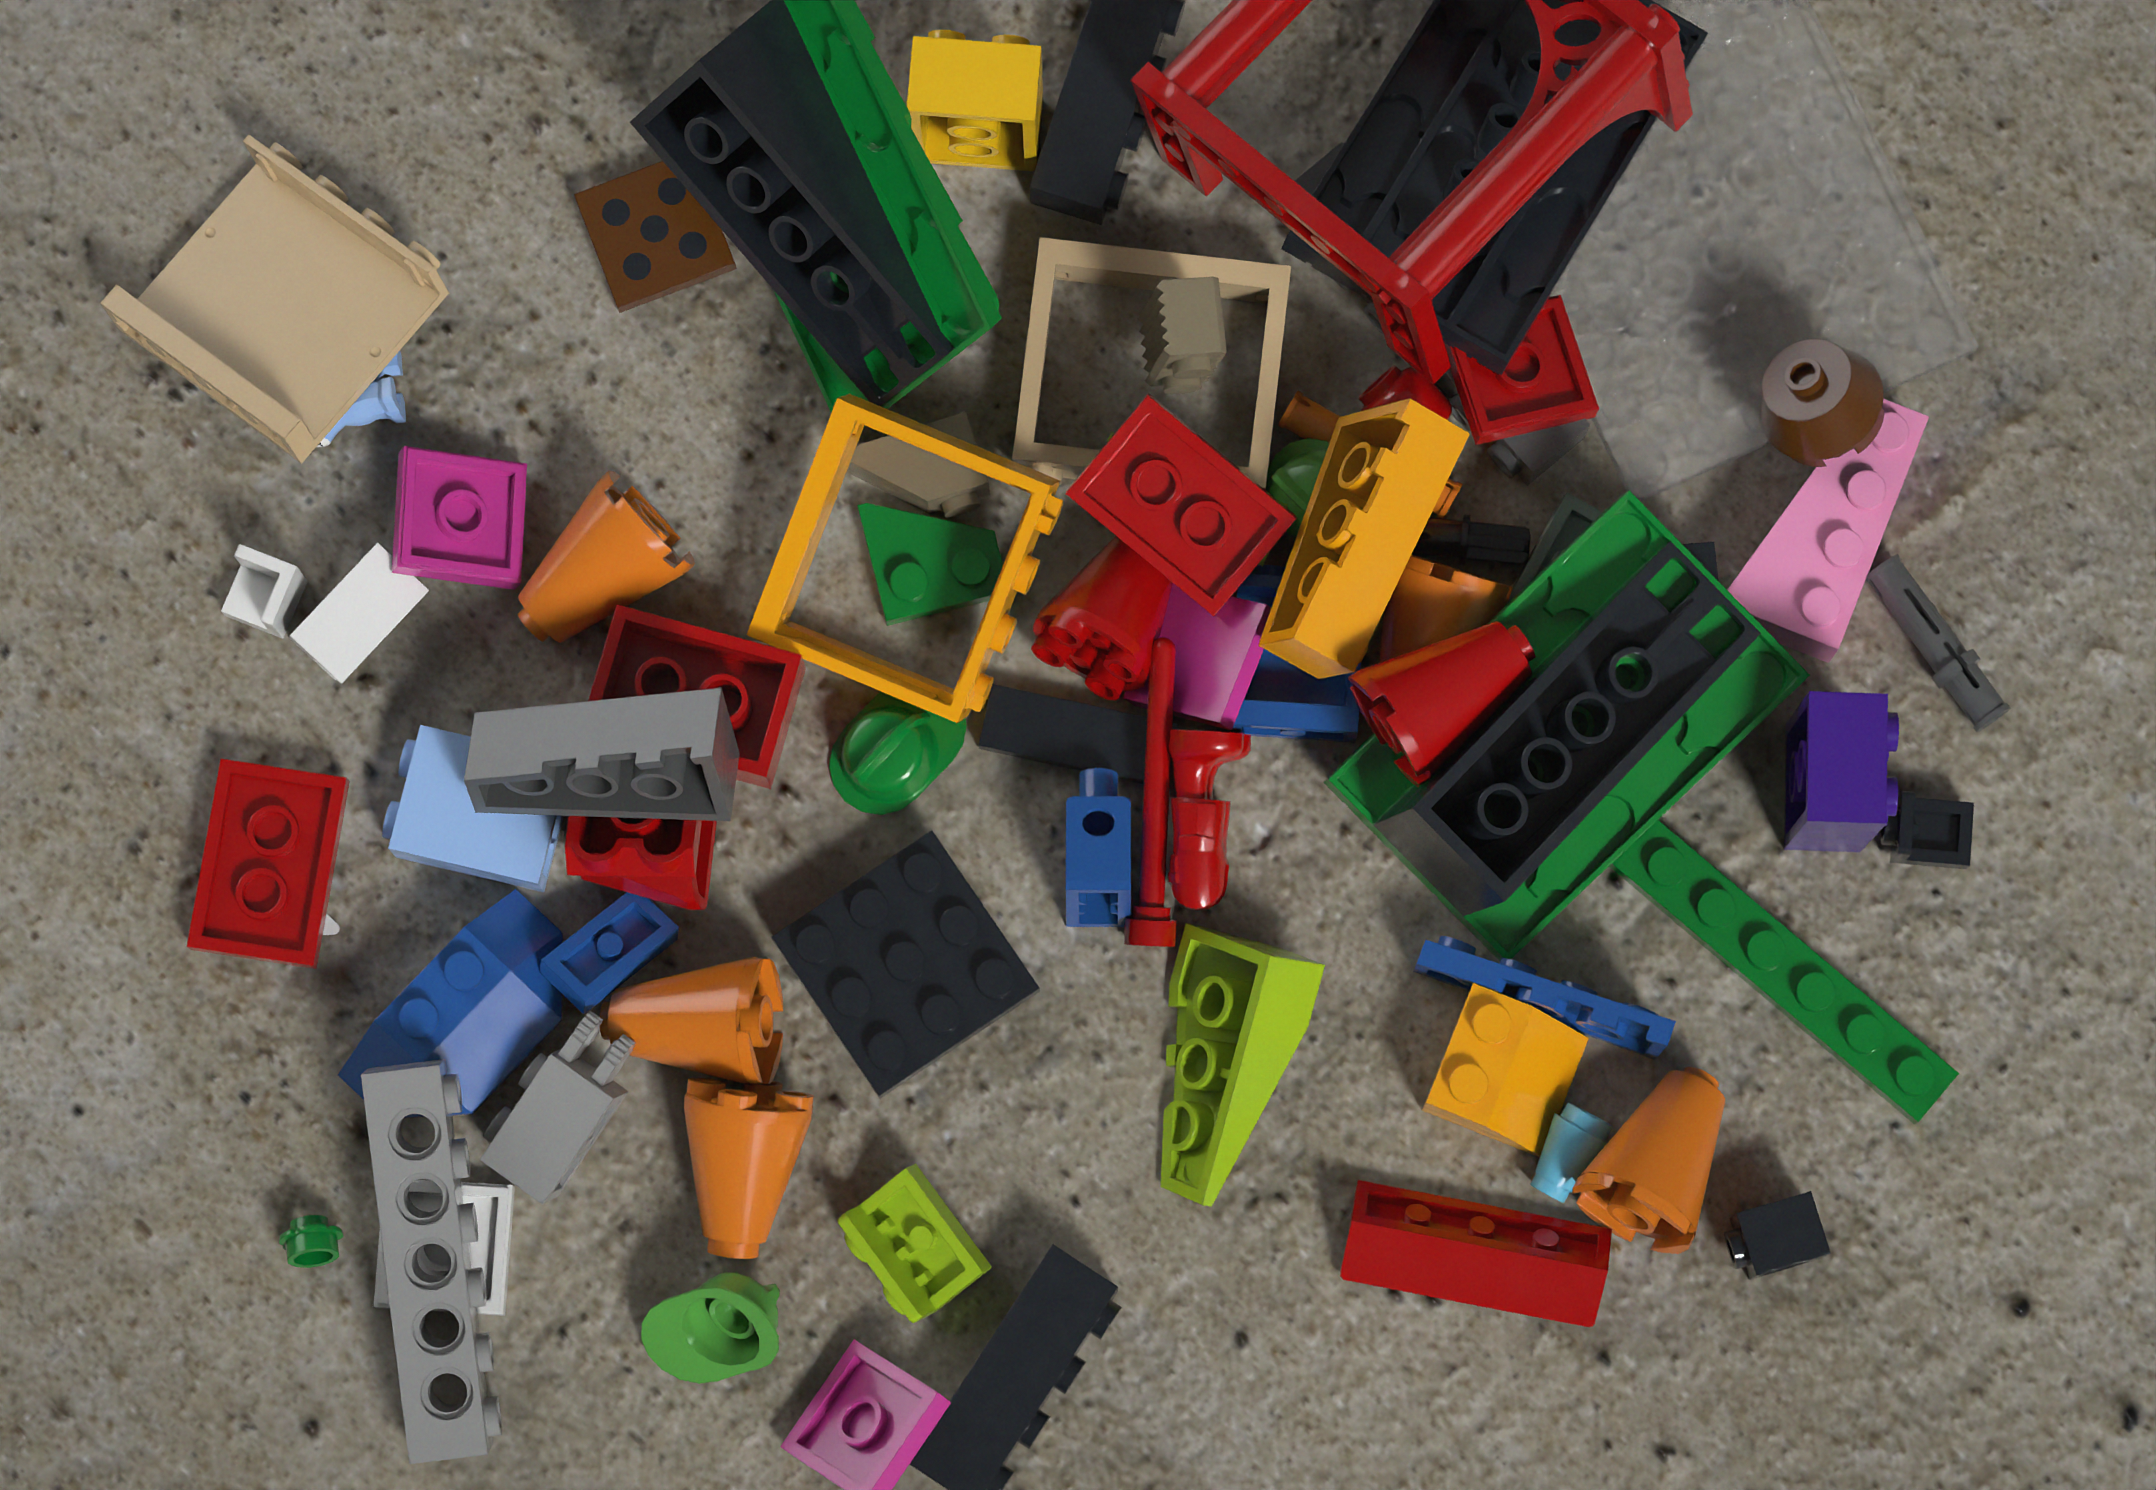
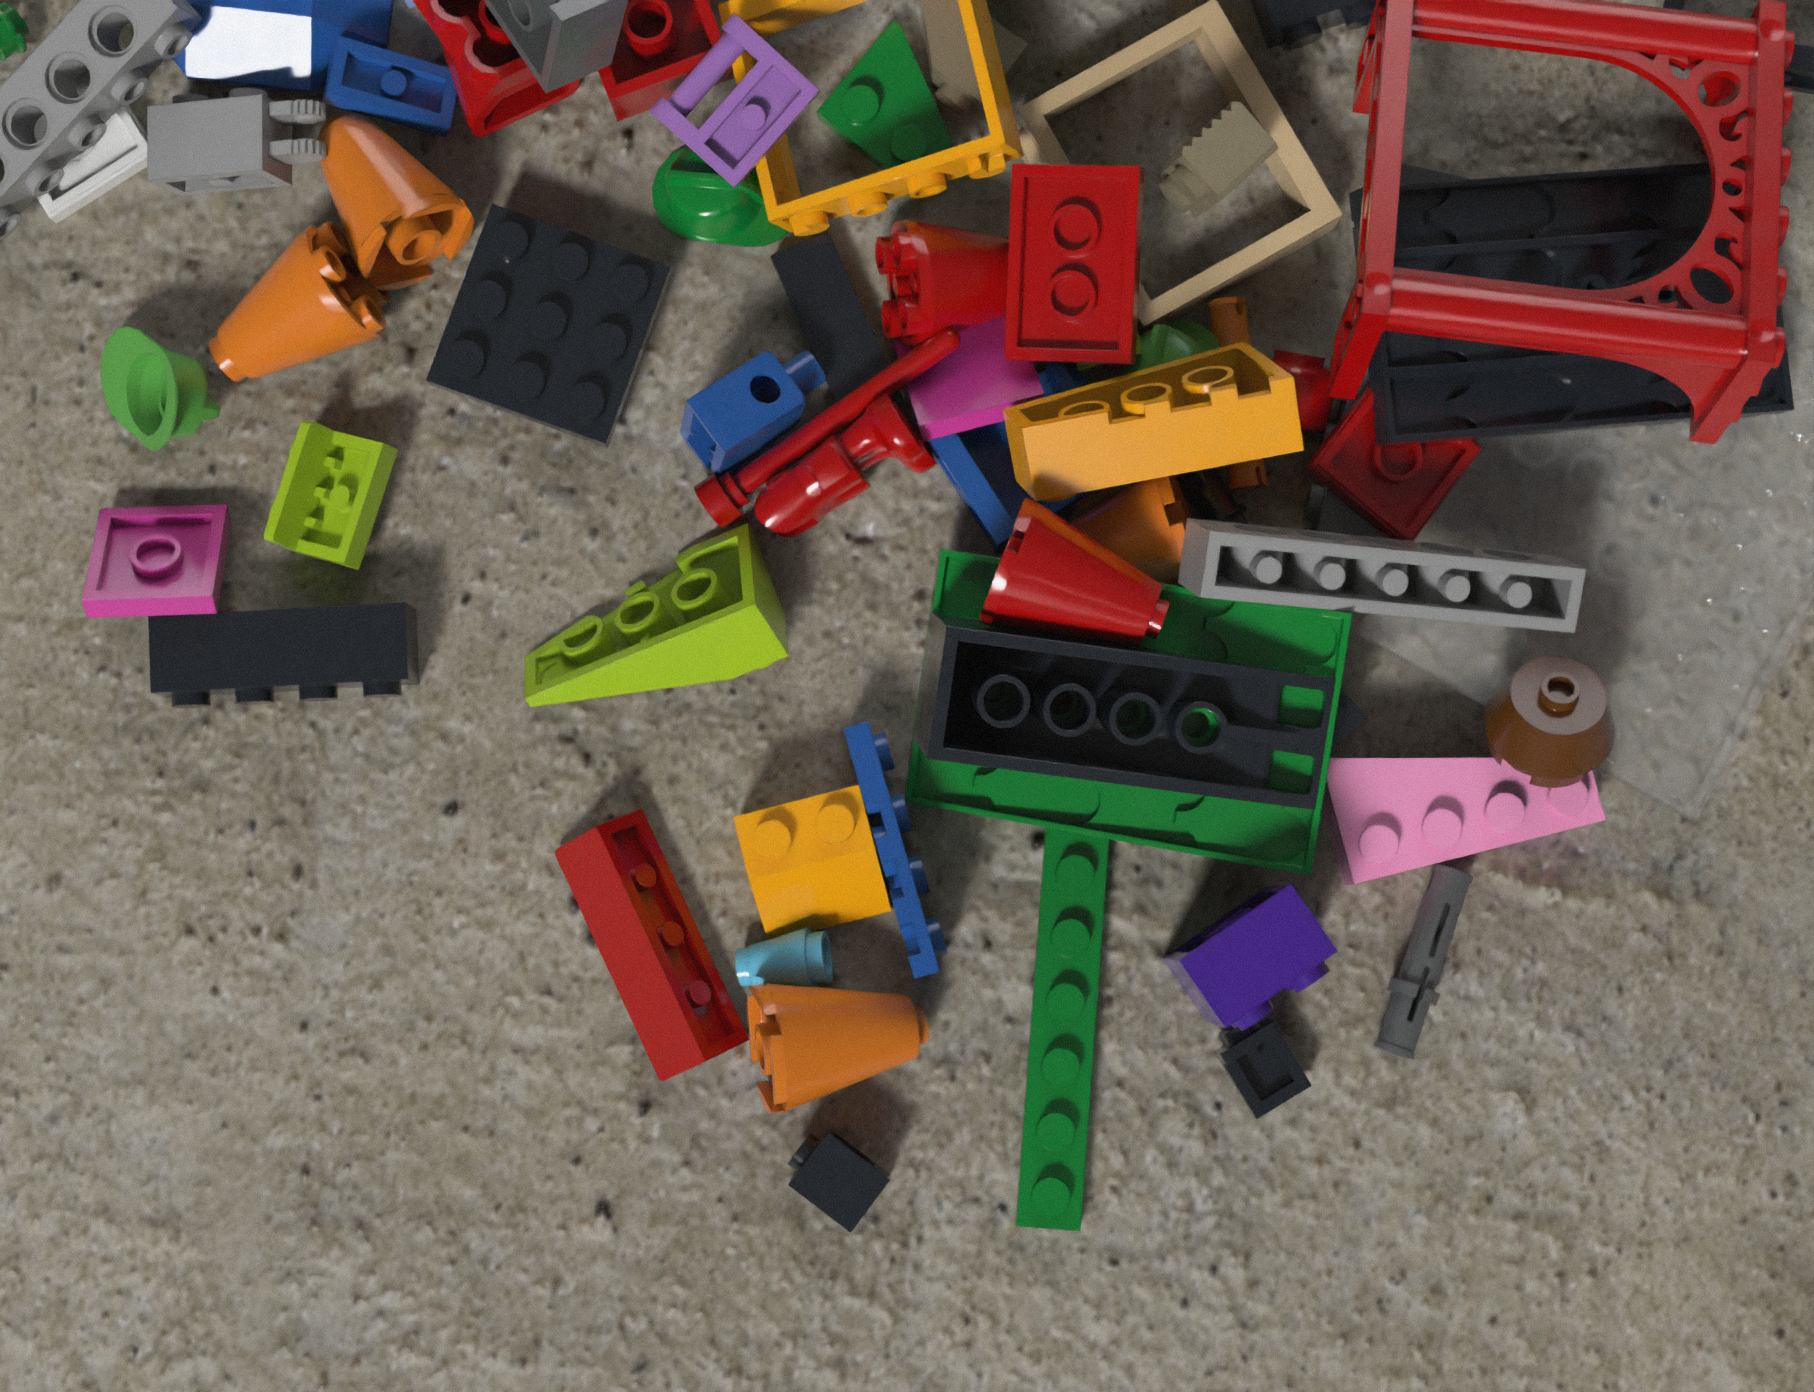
camera: 55 degrees right, 5 degrees up
(866, 674) = (750, 116): none -> medium lavender plate
(1610, 448) = (1380, 576): none -> light grey brick

